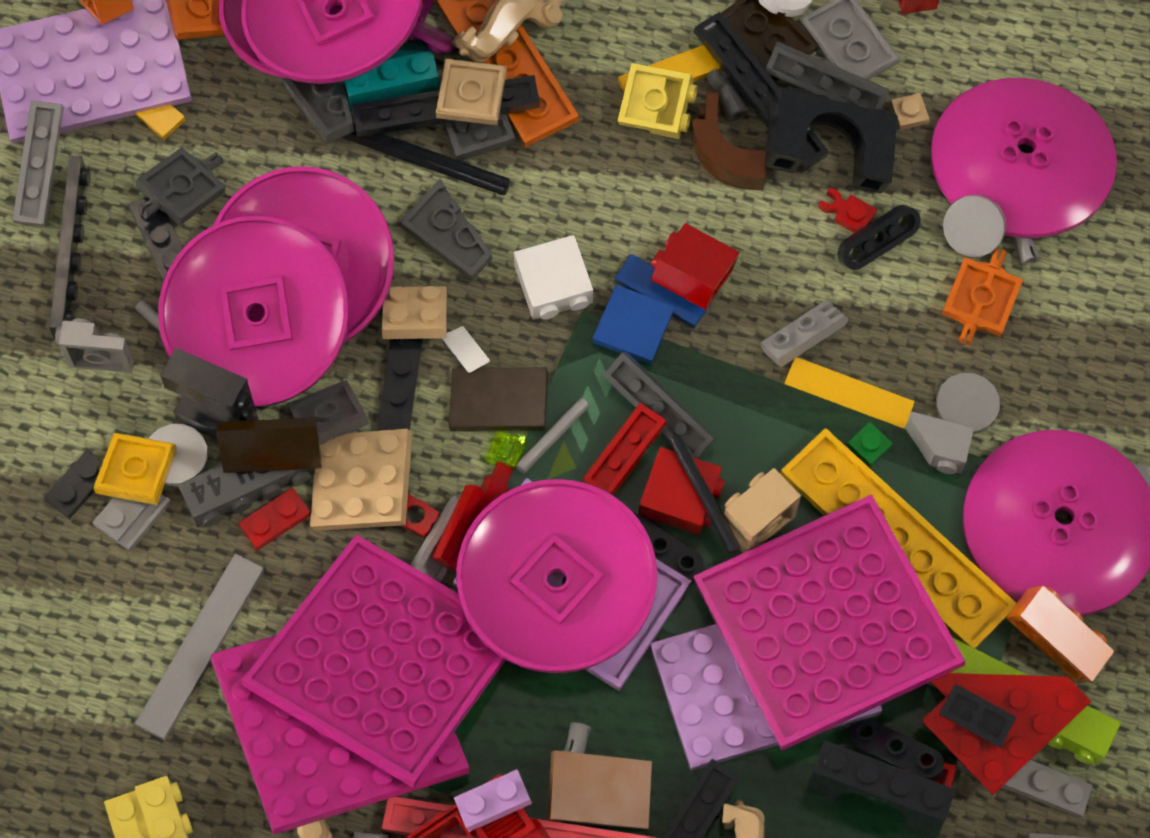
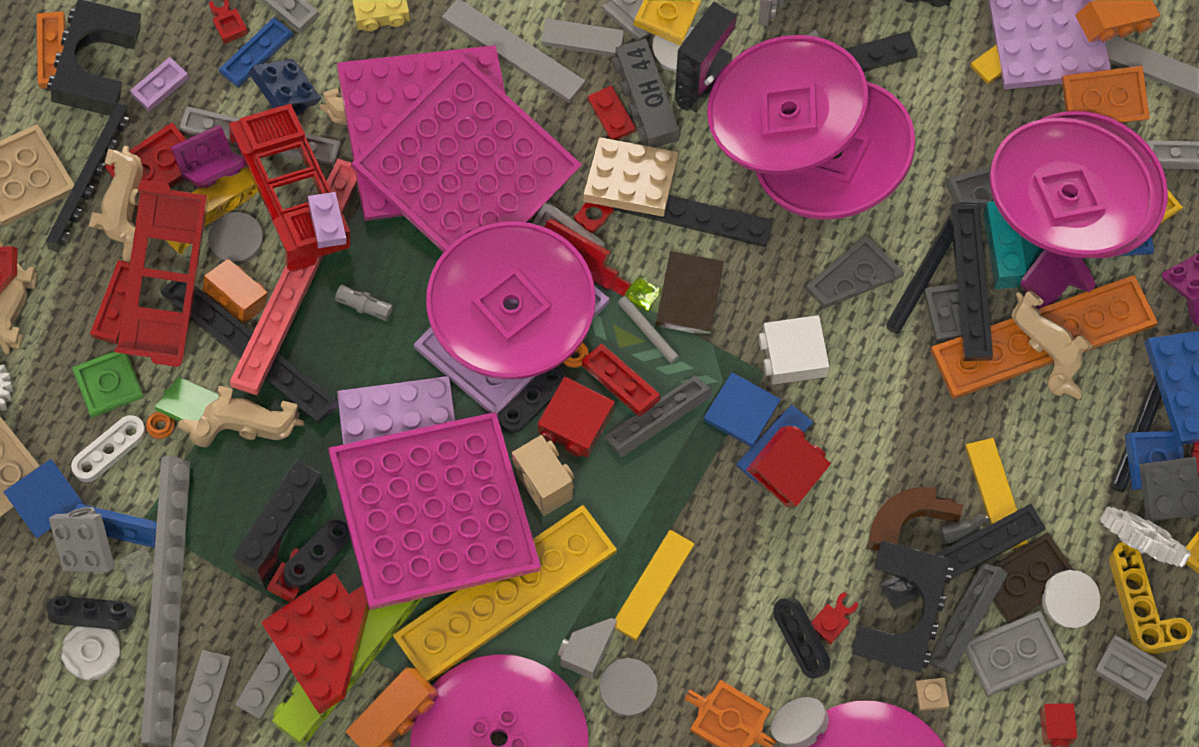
camera: 100 degrees right, 0 degrees up
(174, 567) = (581, 37): none -> light grey tile
(180, 186) = (919, 69): dark grey plate -> none
(269, 445) = (659, 96): dark brown tile -> none
(334, 408) = (693, 157): dark grey plate -> none
(415, 313) = (777, 236): tan plate -> none
(466, 349) = (740, 275): white sticker -> none
(471, 92) = (979, 299): tan tile -> none
(599, 790) = (330, 315): medium nougat tile -> none
(657, 100) = (960, 463): light yellow plate -> none
(704, 494) = (565, 427): black bar -> none
(803, 333) = (716, 555): light grey hinge -> none
(869, 444) = (598, 589): green plate -> none
(977, 715) = (317, 605): black hinge -> none

